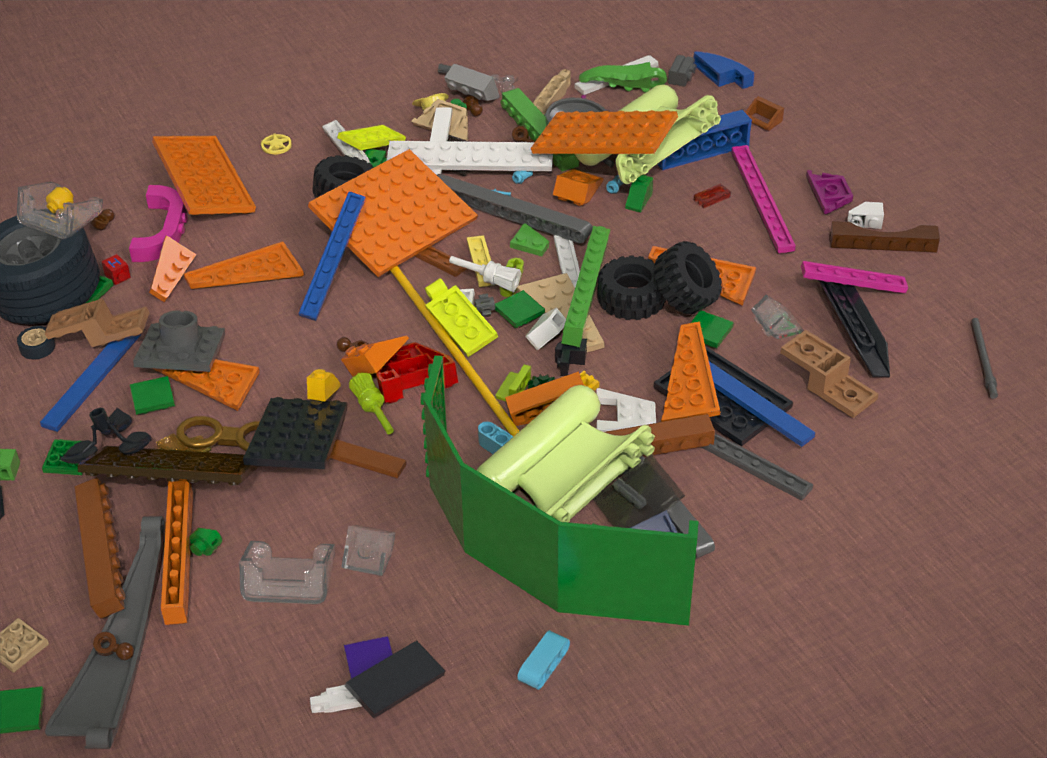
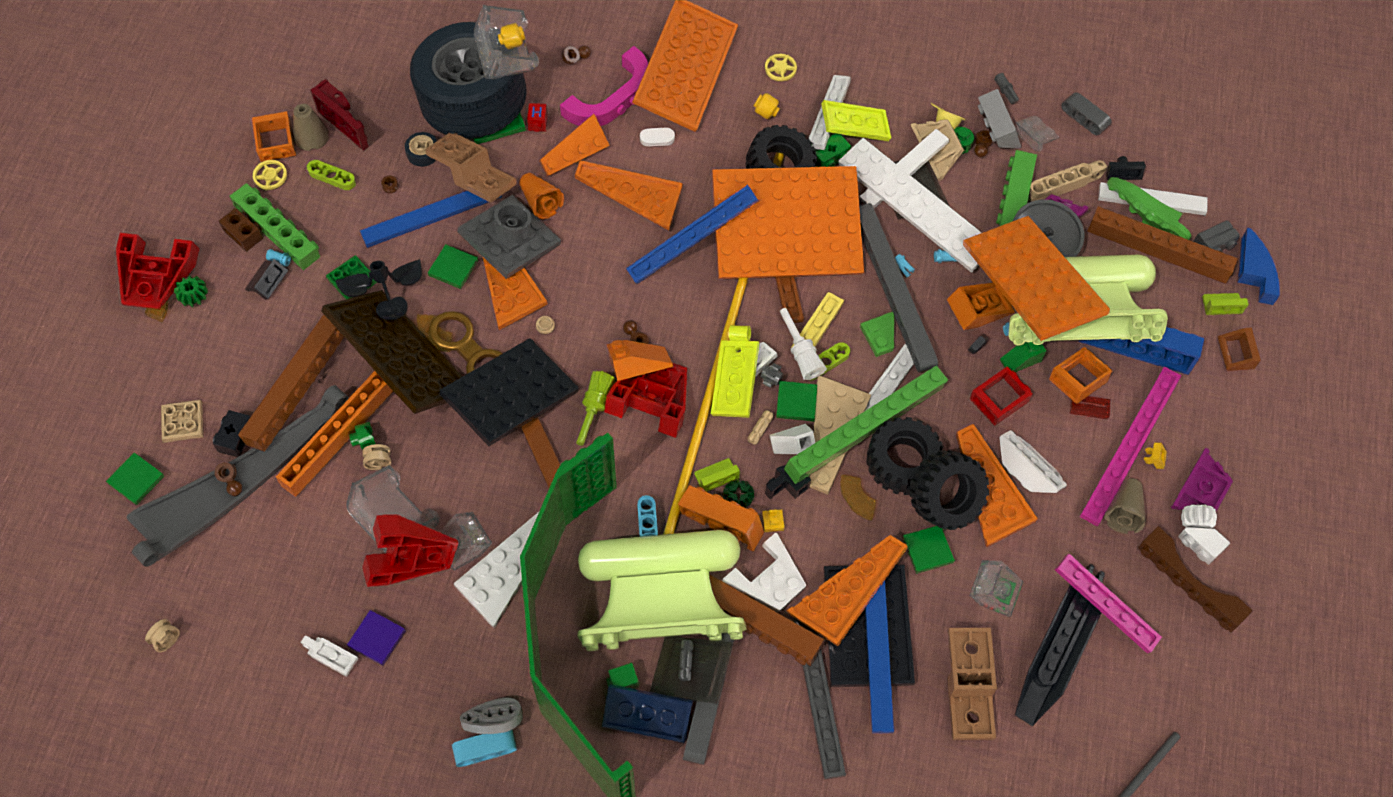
camera: 40 degrees right, 20 degrees up
(31, 380) = (389, 189): none -> reddish brown bush
(80, 617) = (227, 439): none -> black brick
(180, 301) = (541, 196): none -> orange cone
(228, 230) = (657, 137): none -> white tile
(231, 545) = (376, 458): none -> tan wheel
(273, 383) = (545, 325): none -> tan plate
(294, 166) = (766, 106): none -> yellow head
(321, 385) = (570, 358): yellow slope -> none
(342, 574) = (410, 552): none -> red wedge
(395, 679) = (371, 671): black tile -> none
(422, 548) = (496, 576): none -> white wing
(511, 340) = (760, 427): none -> tan axle
(517, 131) = (988, 223): reddish brown plate -> none
(528, 59) = (1086, 113): none -> dark grey beam
(528, 633) = (492, 716): none -> light grey piece
(582, 66) = (1126, 170): none -> black tile
(602, 205) = (979, 343): none -> black tile
(619, 333) = (856, 498): none -> clear yellow tile
(658, 232) = (989, 408): none -> red window
(684, 84) = (1162, 245): none -> dark orange brick
(688, 181) = (1070, 385): none -> orange window
(718, 243) = (1028, 465): none -> white wedge
(729, 98) = (1224, 304): none -> lime panel
(784, 193) = (1158, 455): none -> yellow tile
(803, 226) = (1127, 508): none -> dark tan cone
(847, 201) = (1199, 516): none -> white gear

